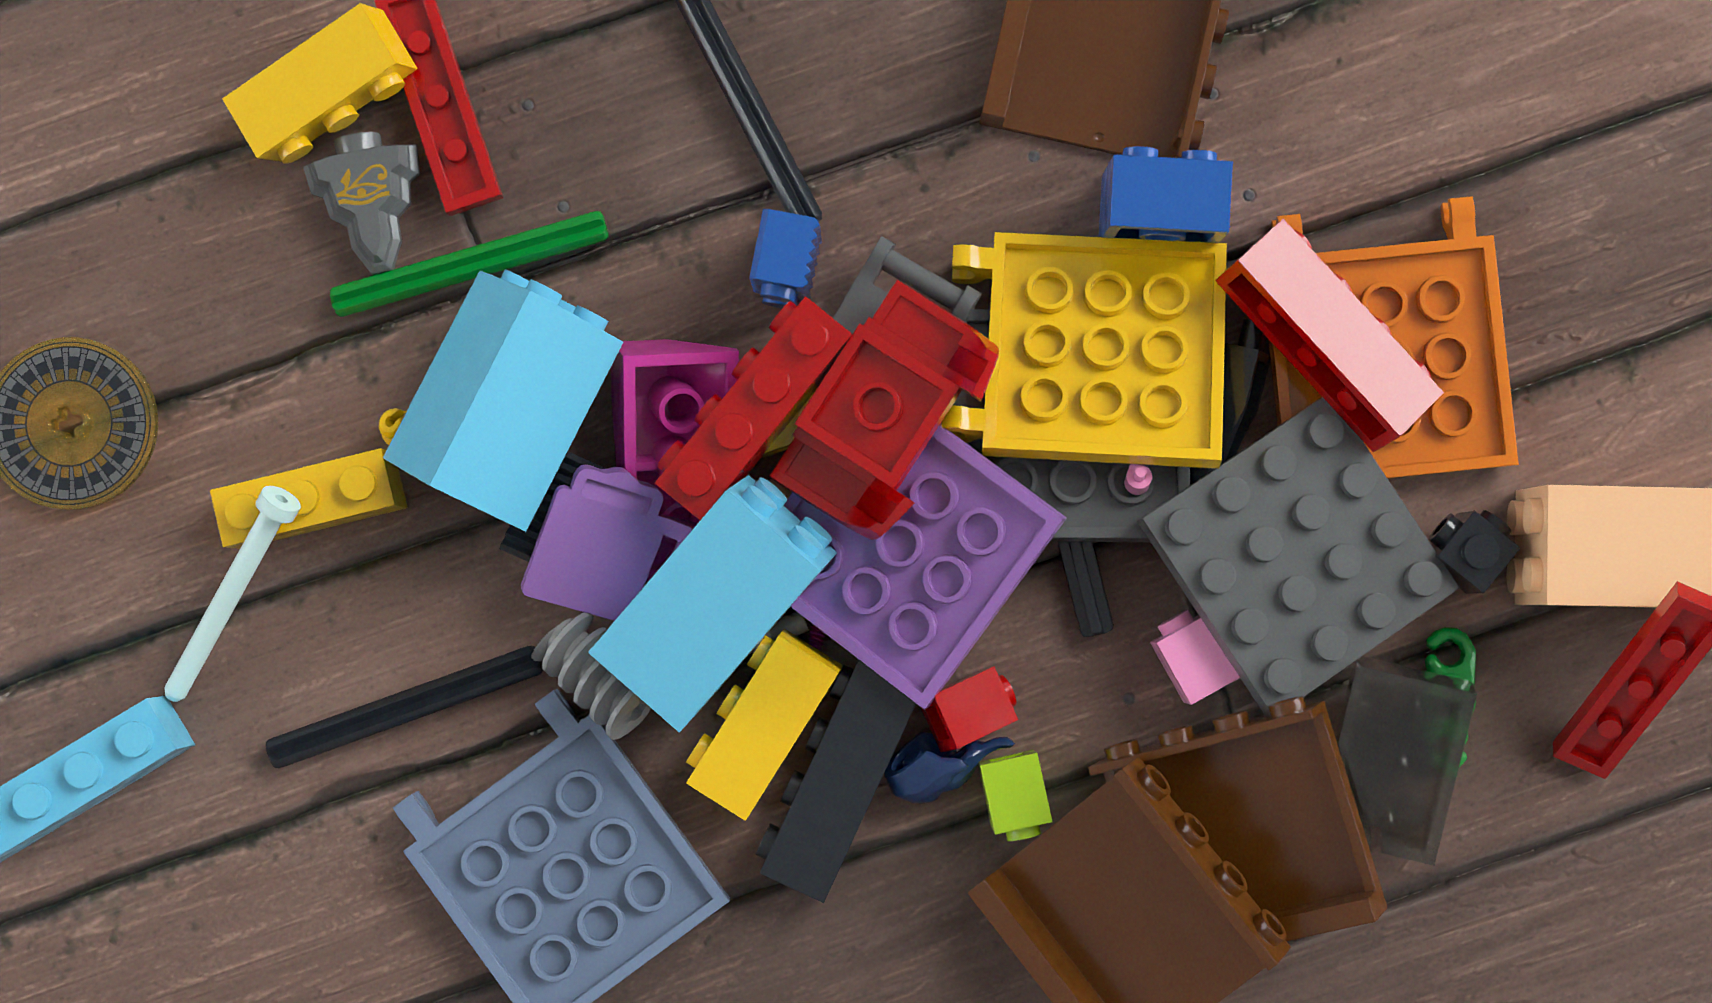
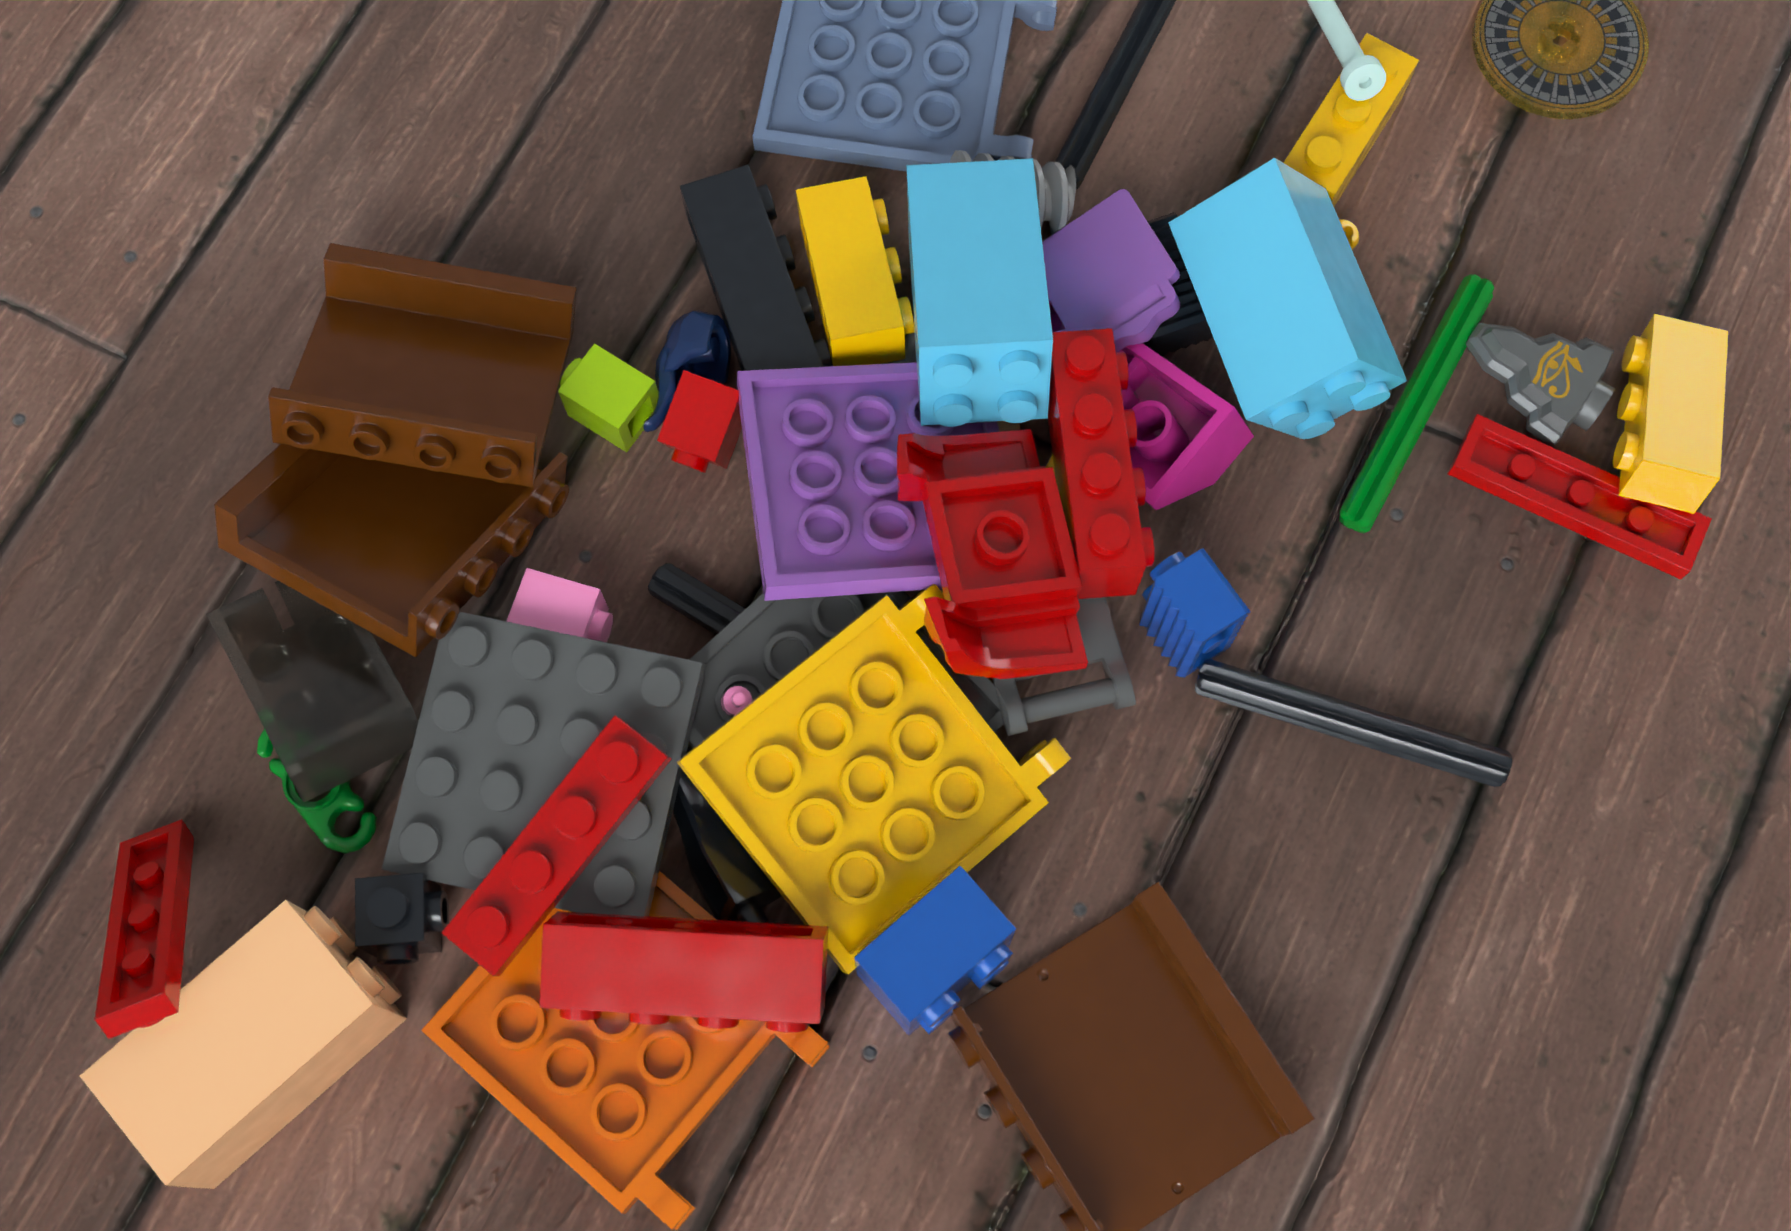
camera: 135 degrees right, 15 degrees down
(1341, 486) = (556, 846): none -> red plate

